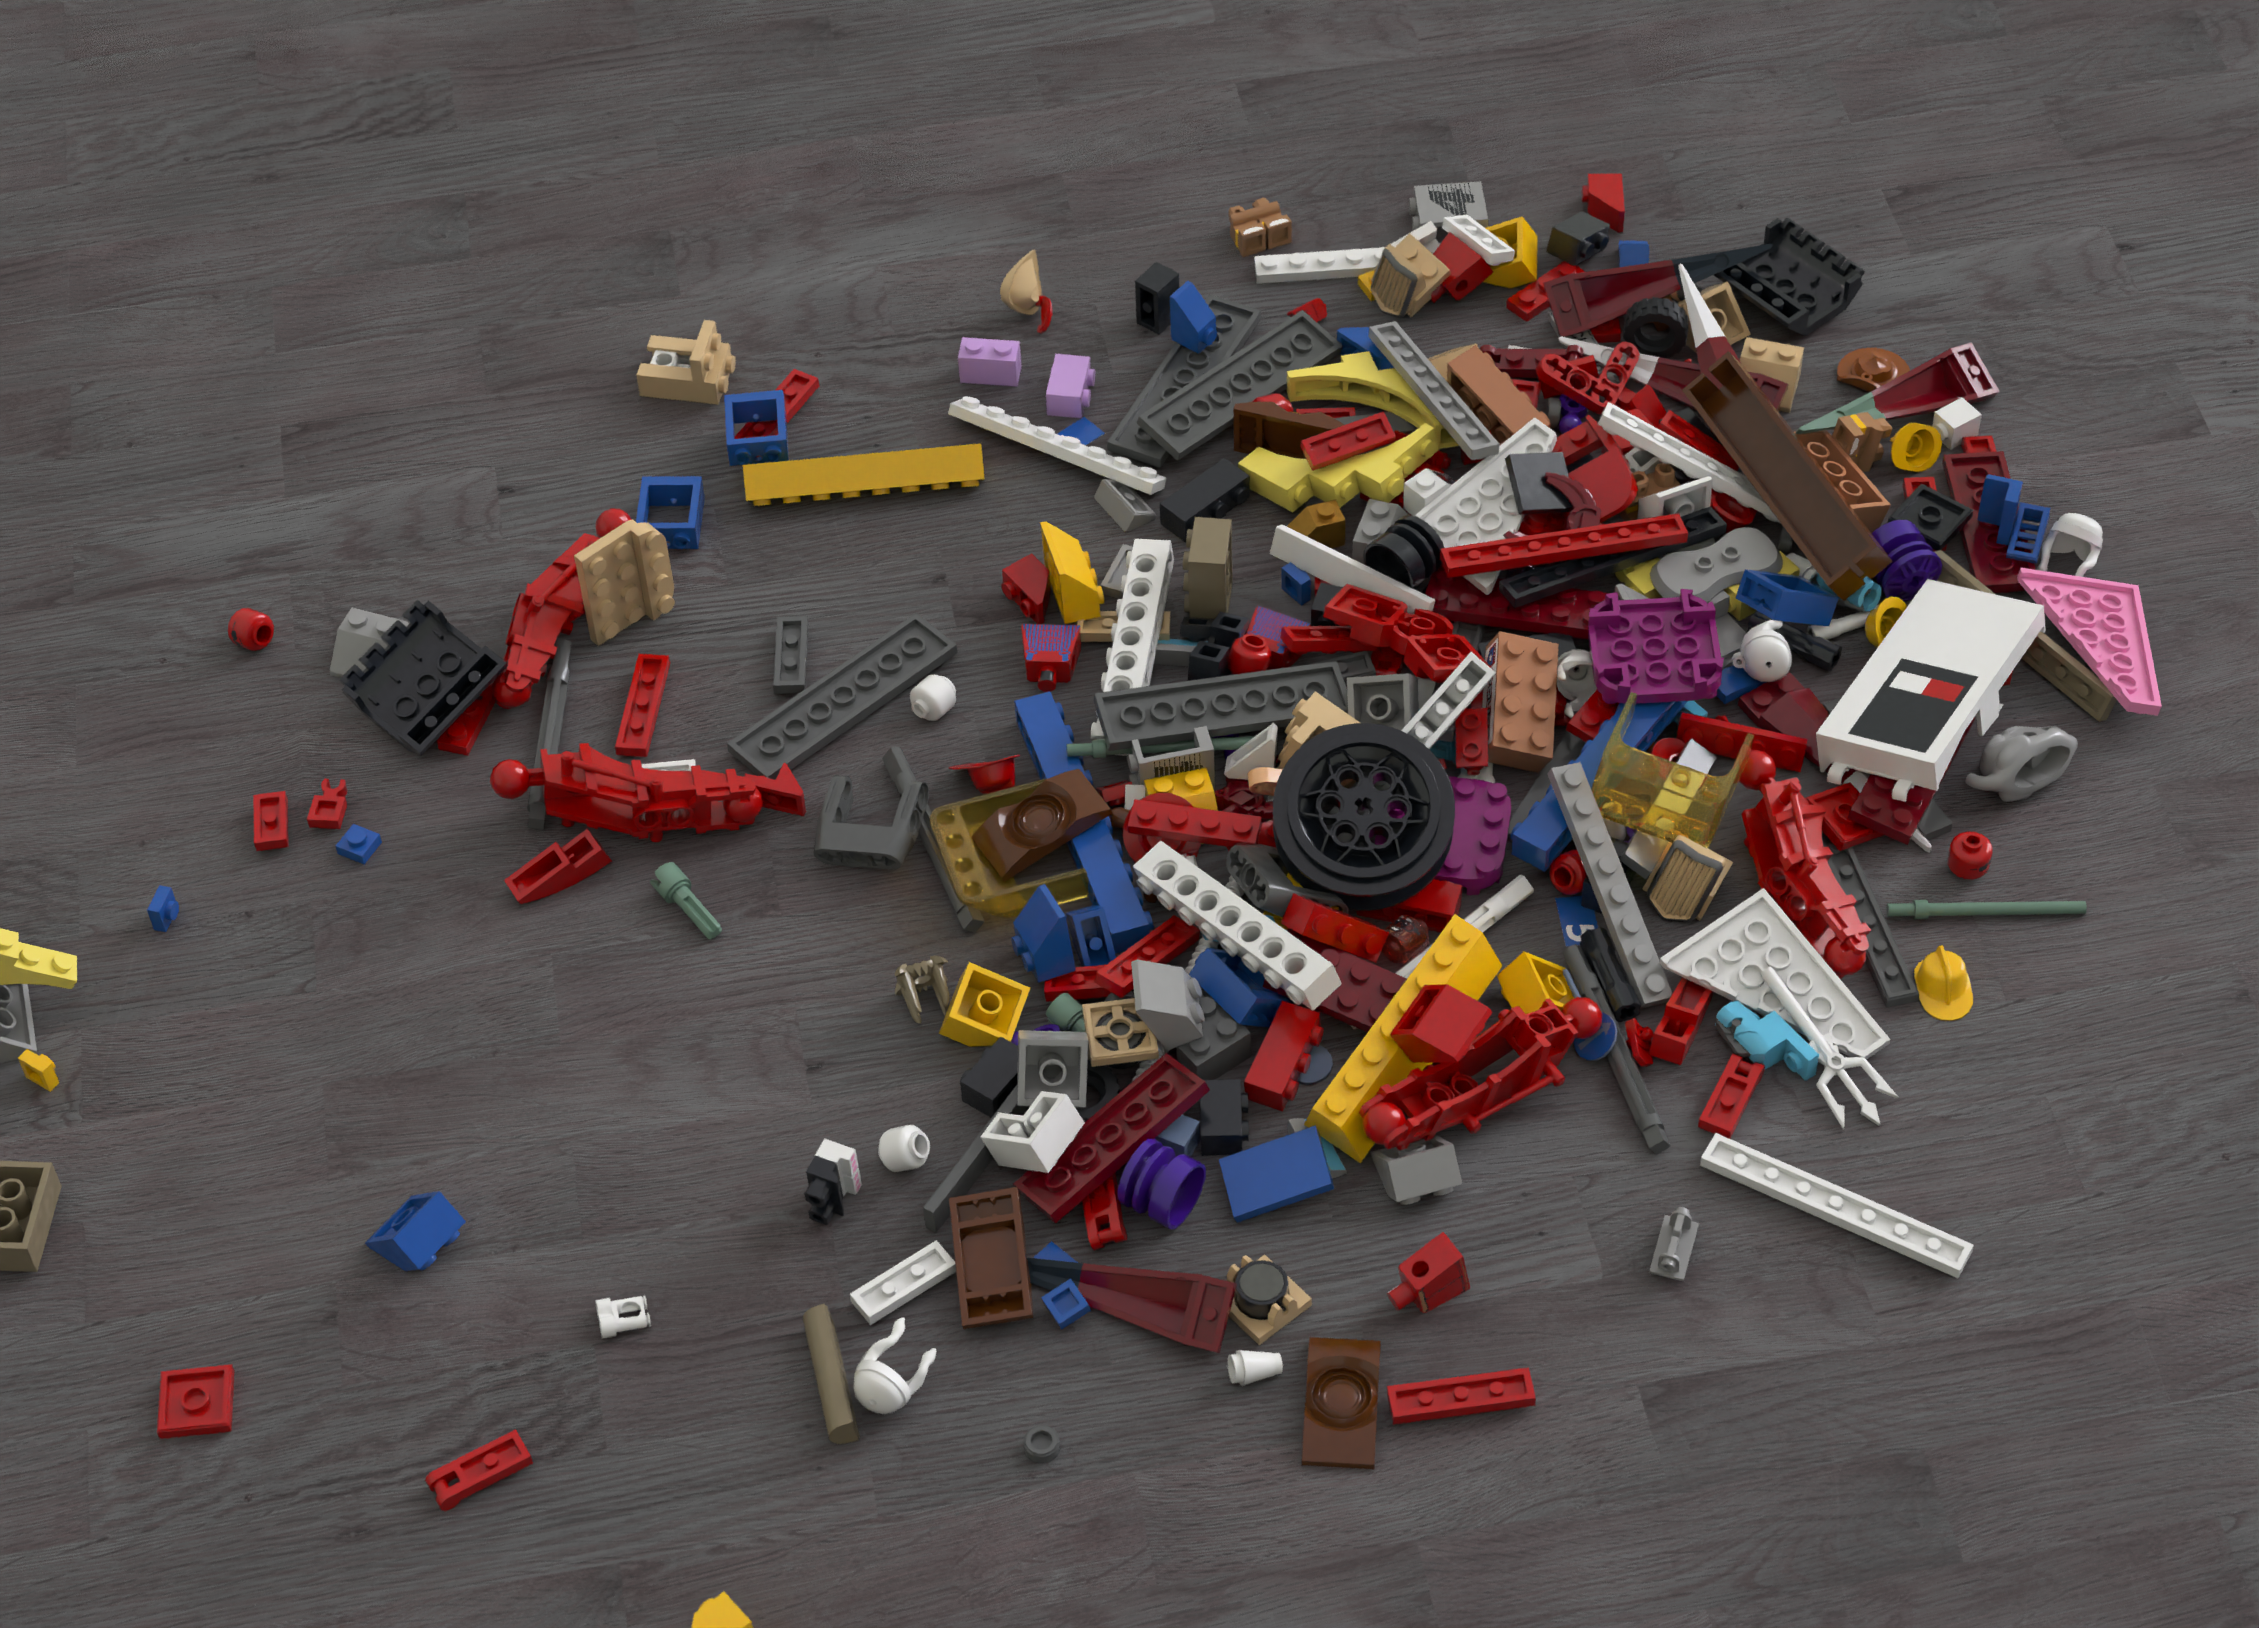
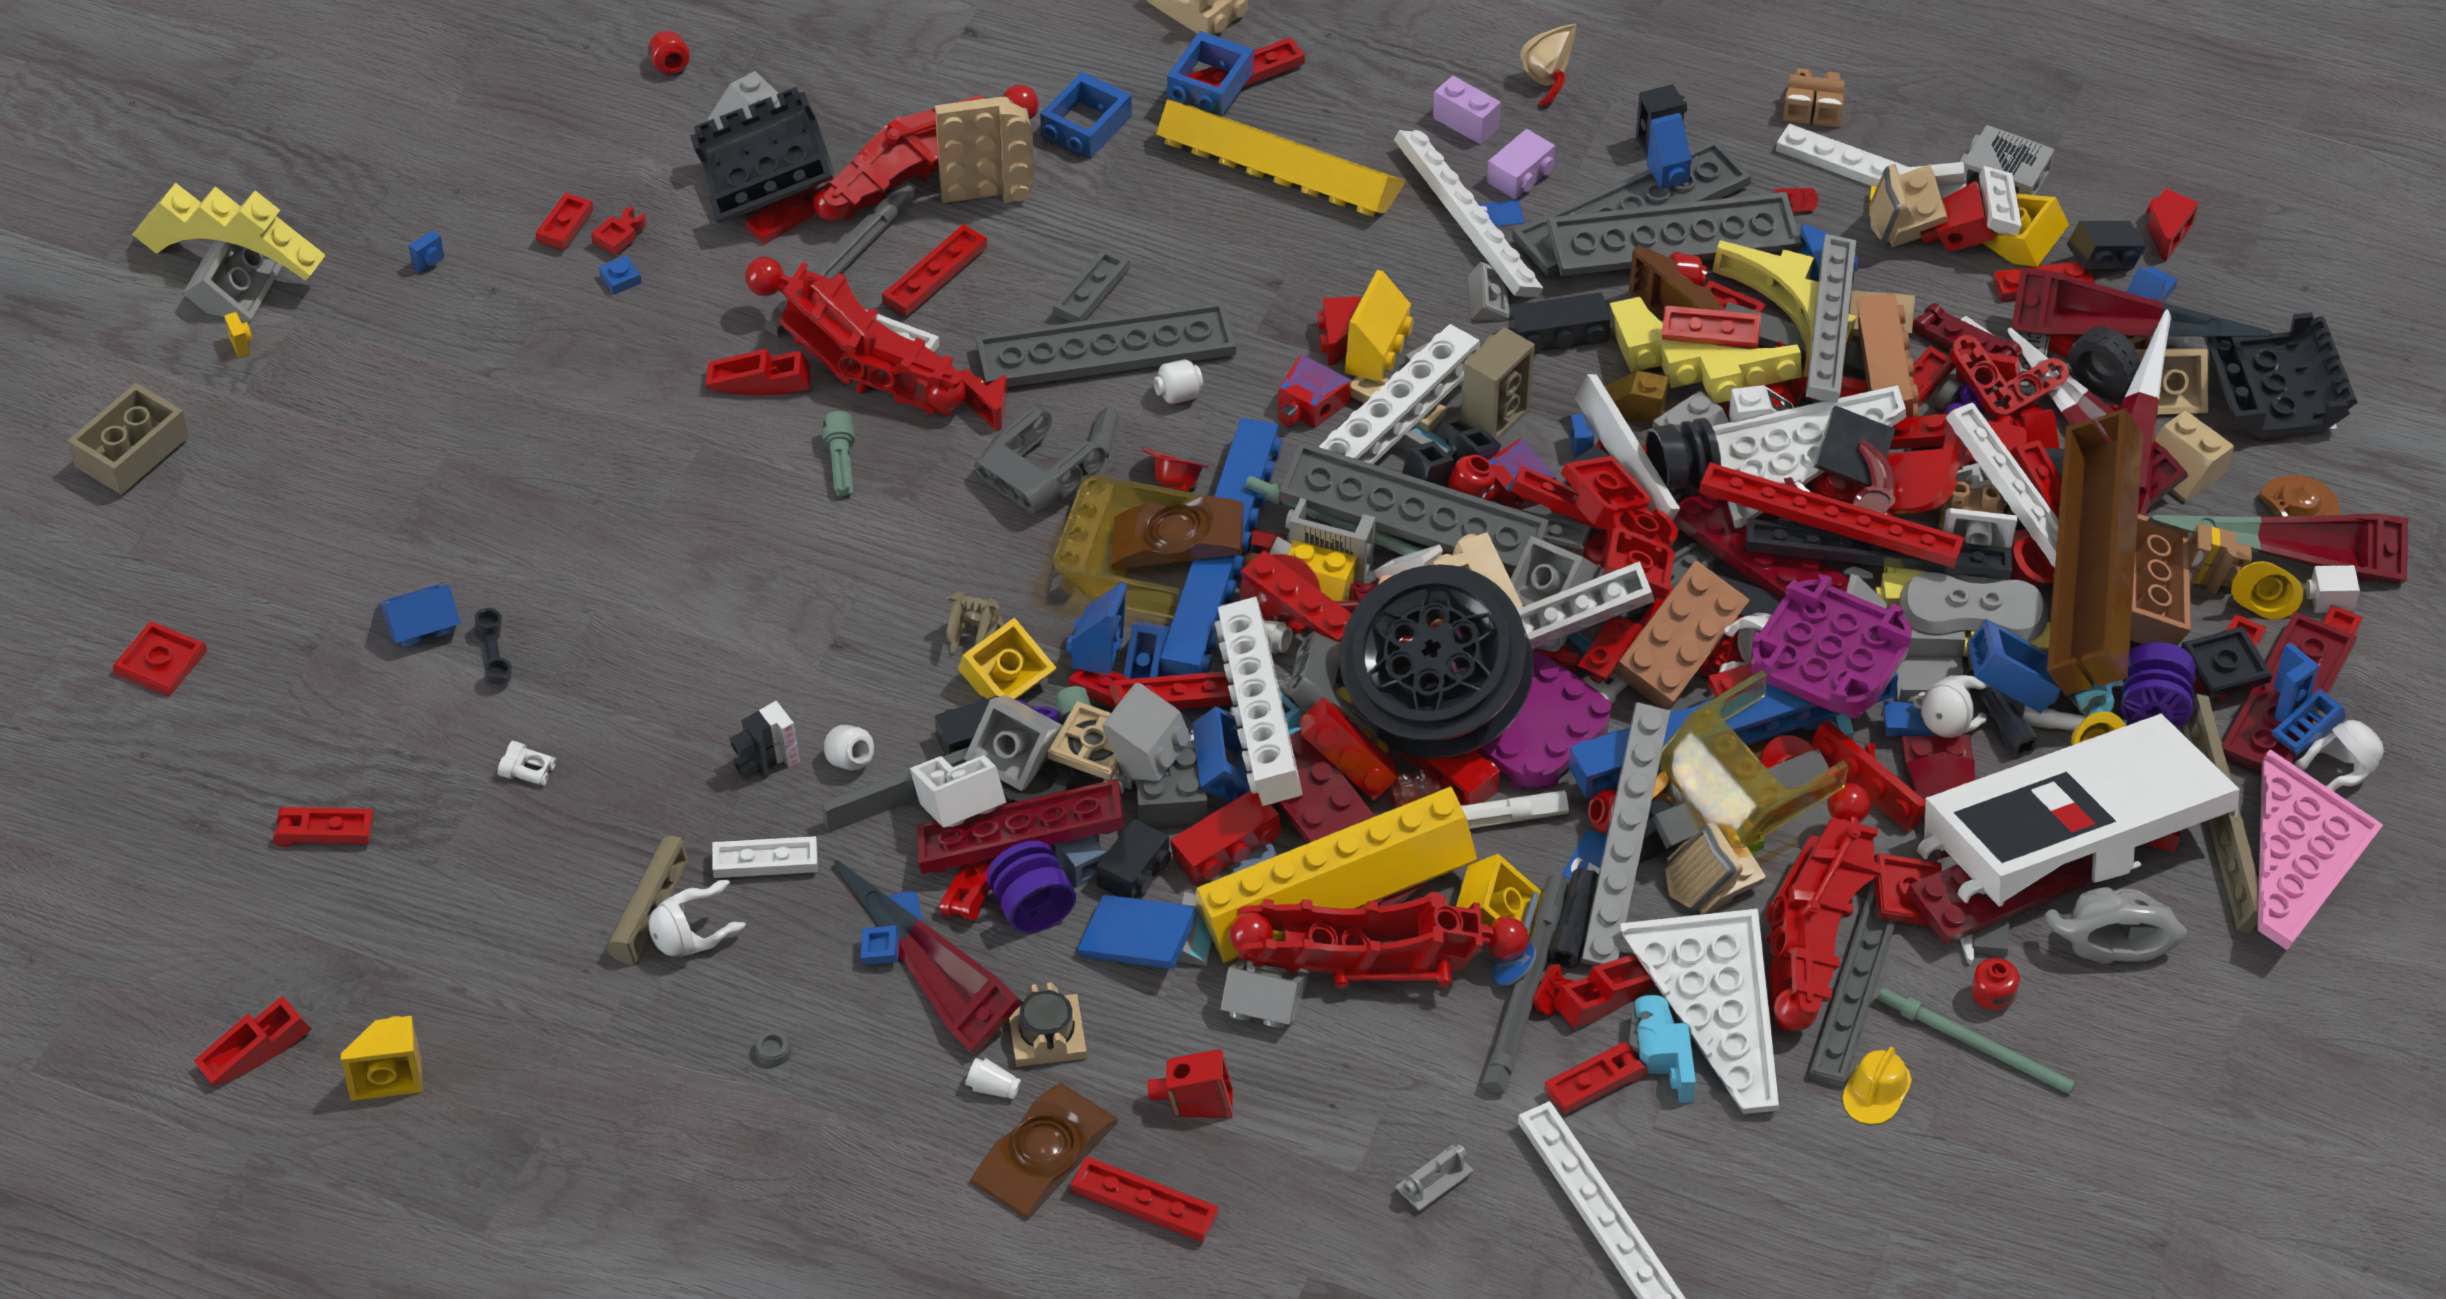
camera: 30 degrees right, 0 degrees up
(489, 1215) = (488, 629): none -> black bar
(991, 1258) = (847, 874): reddish brown slope -> none
(1440, 1025) = (1357, 873): red slope -> none
(1829, 1055) = (1709, 1089): white piece -> none

